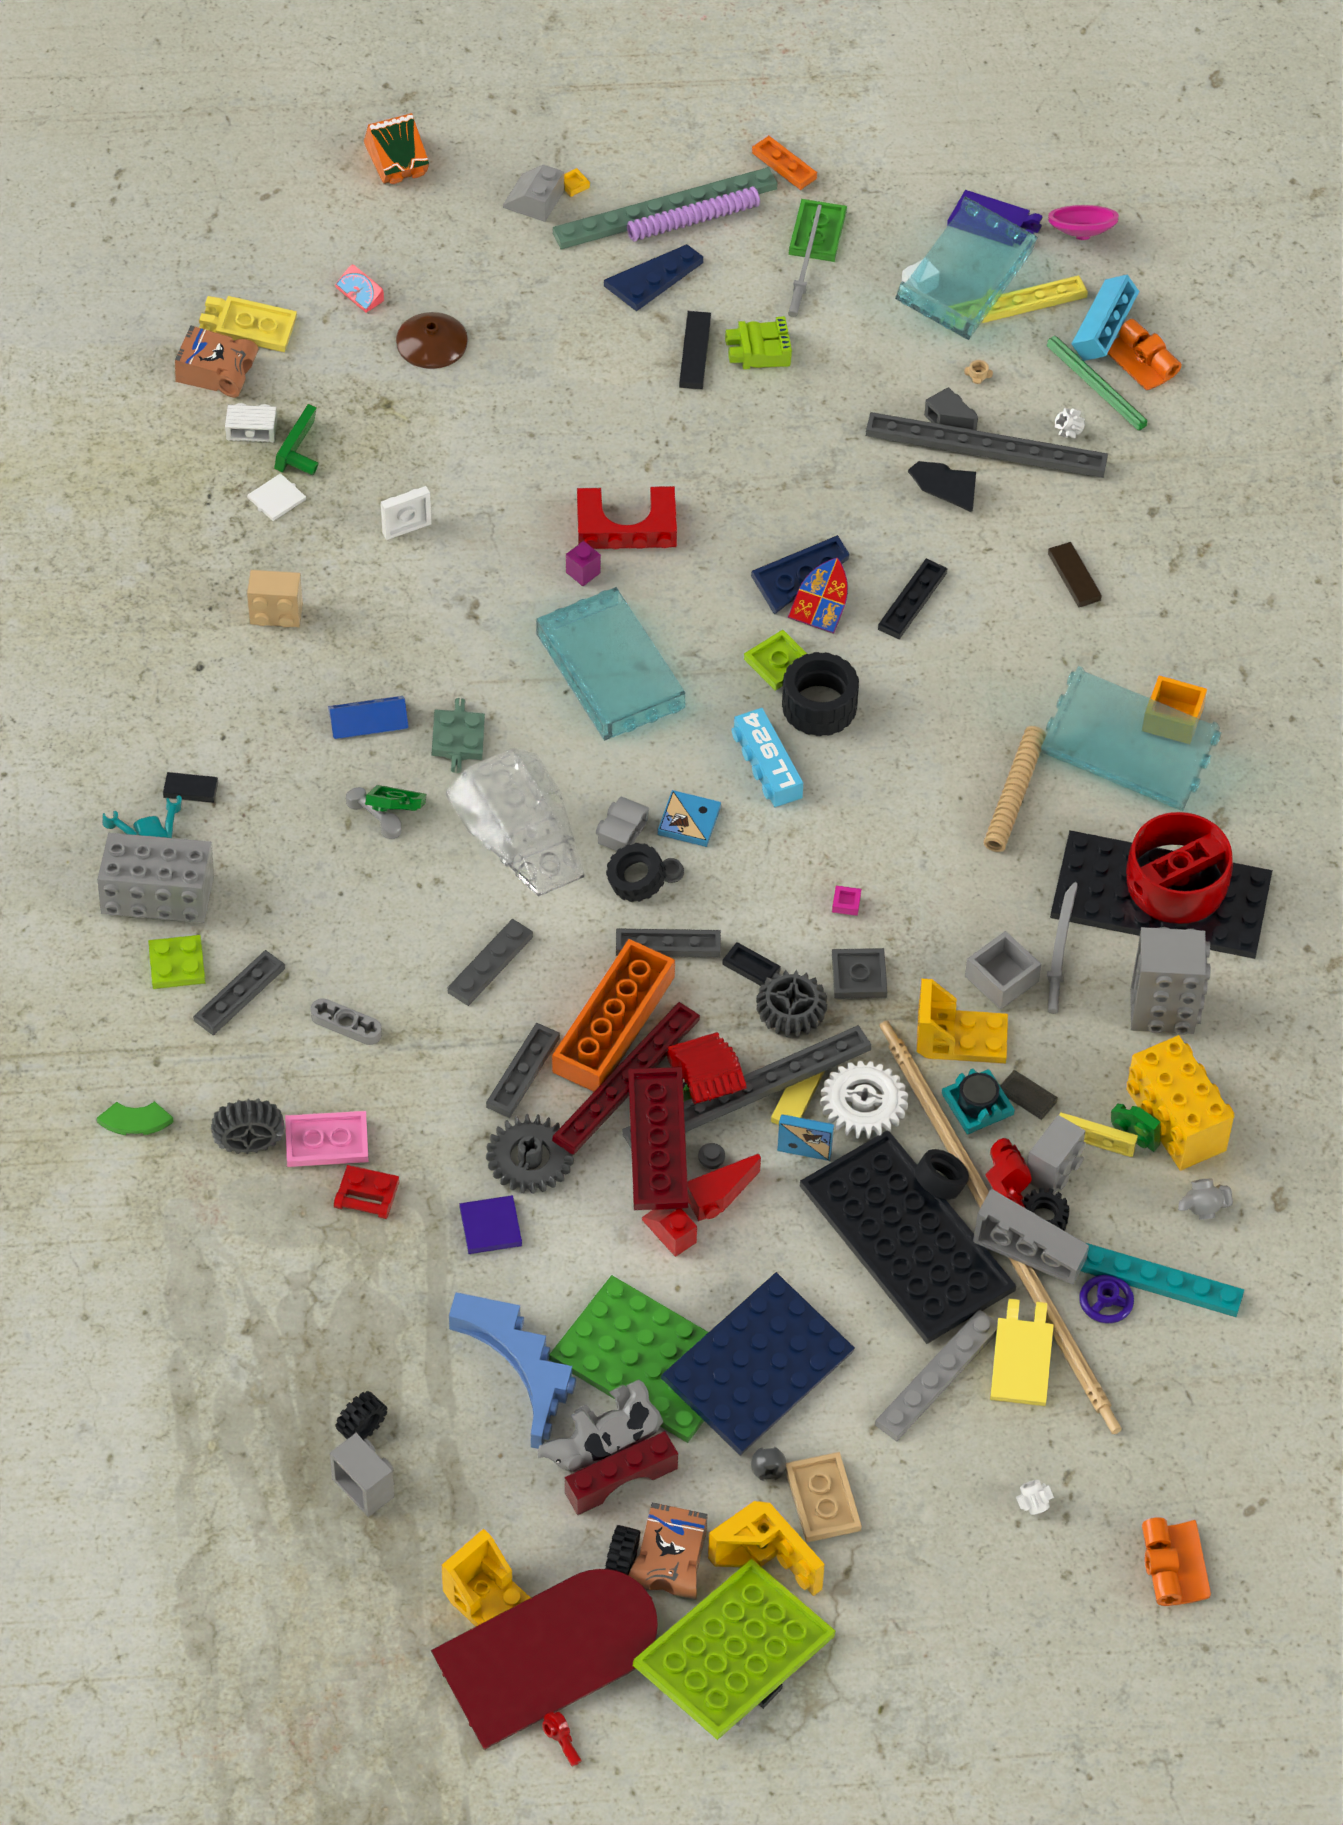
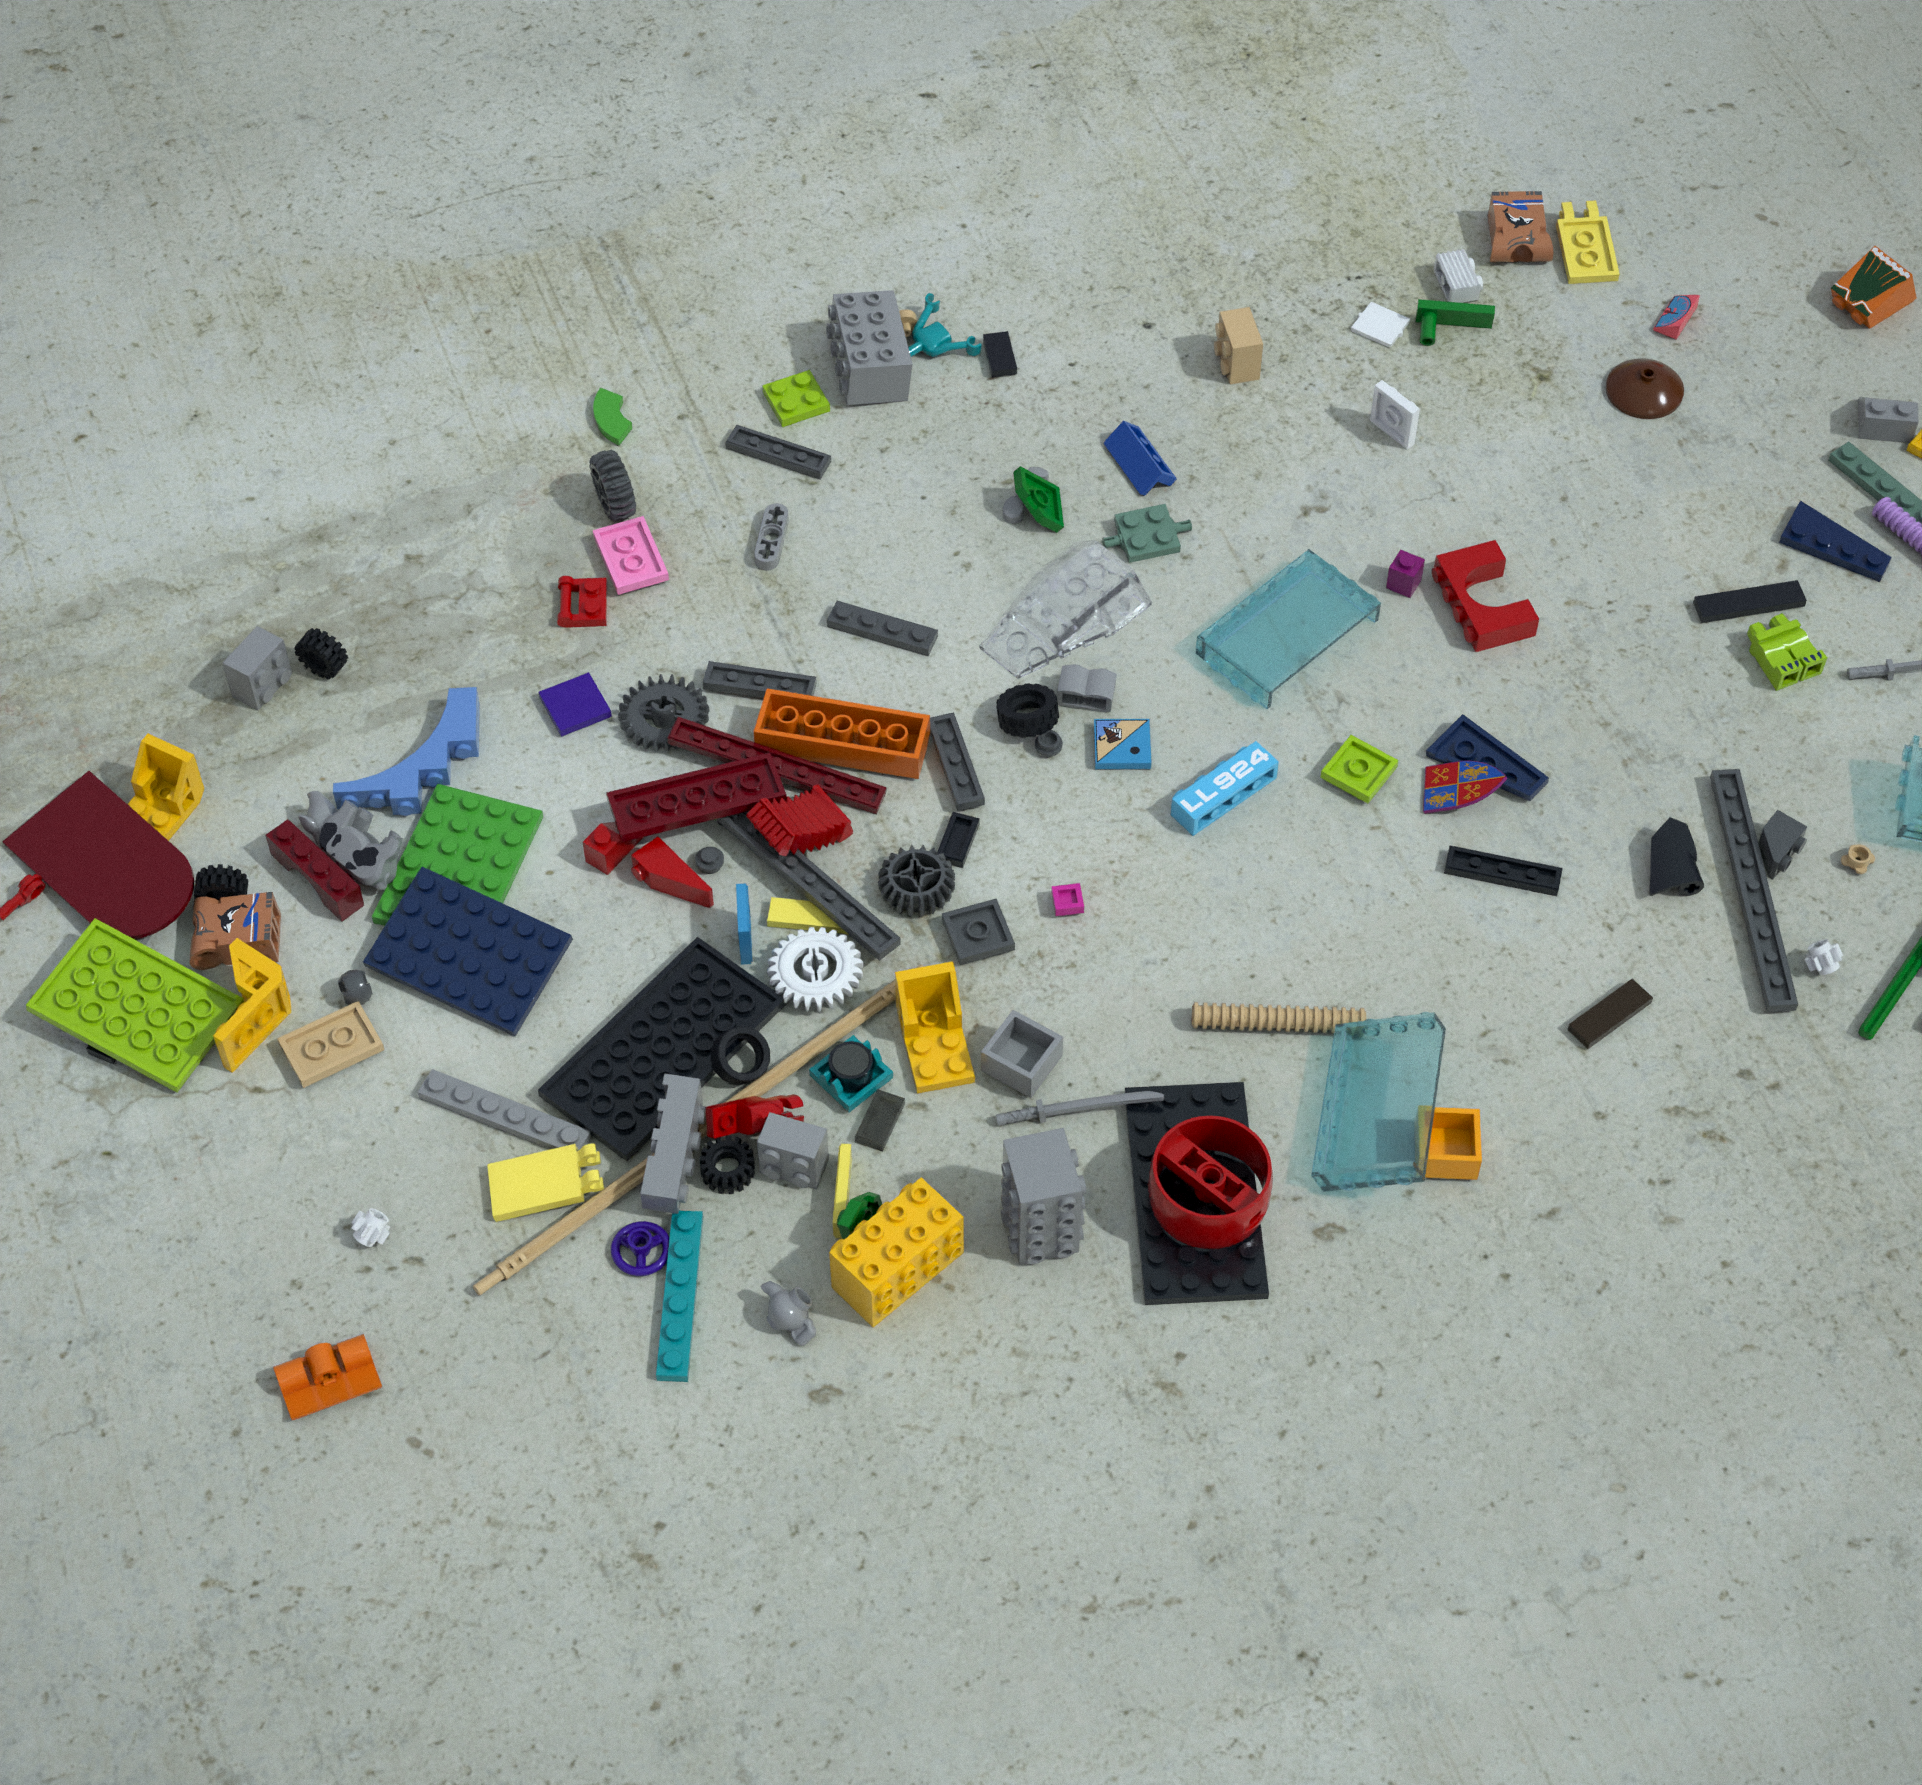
camera: 75 degrees right, 0 degrees up
(825, 671) = (1328, 783): black tyre -> none

